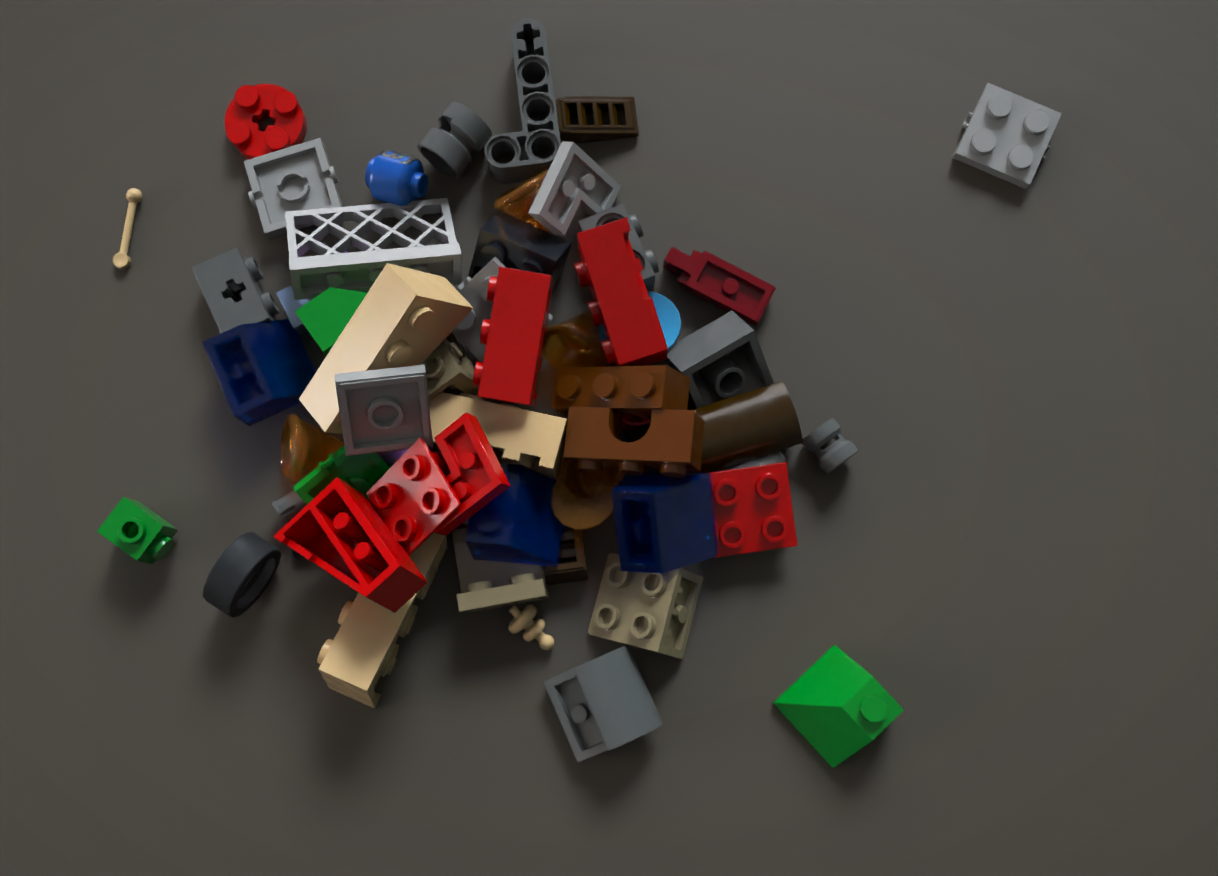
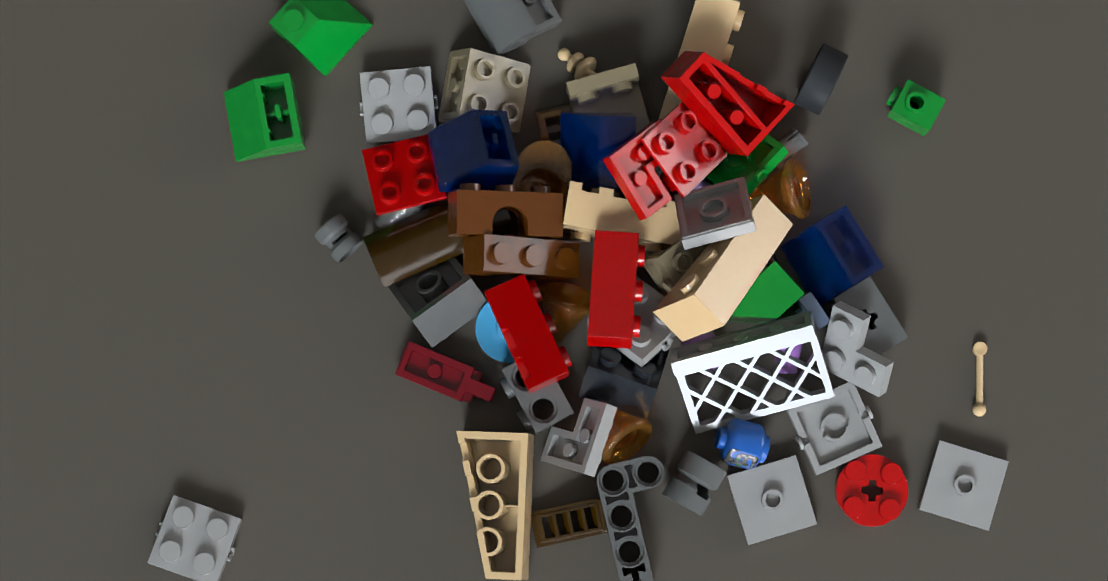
camera: 175 degrees right, 5 degrees up
(166, 119) = (963, 485): none -> light grey plate
(262, 254) = (846, 352): none -> light grey plate
(373, 121) = (771, 500): none -> light grey plate
(668, 155) = (501, 498): none -> tan wedge
(749, 599) = (397, 104): none -> light grey plate
(909, 595) = (264, 117): none -> green slope

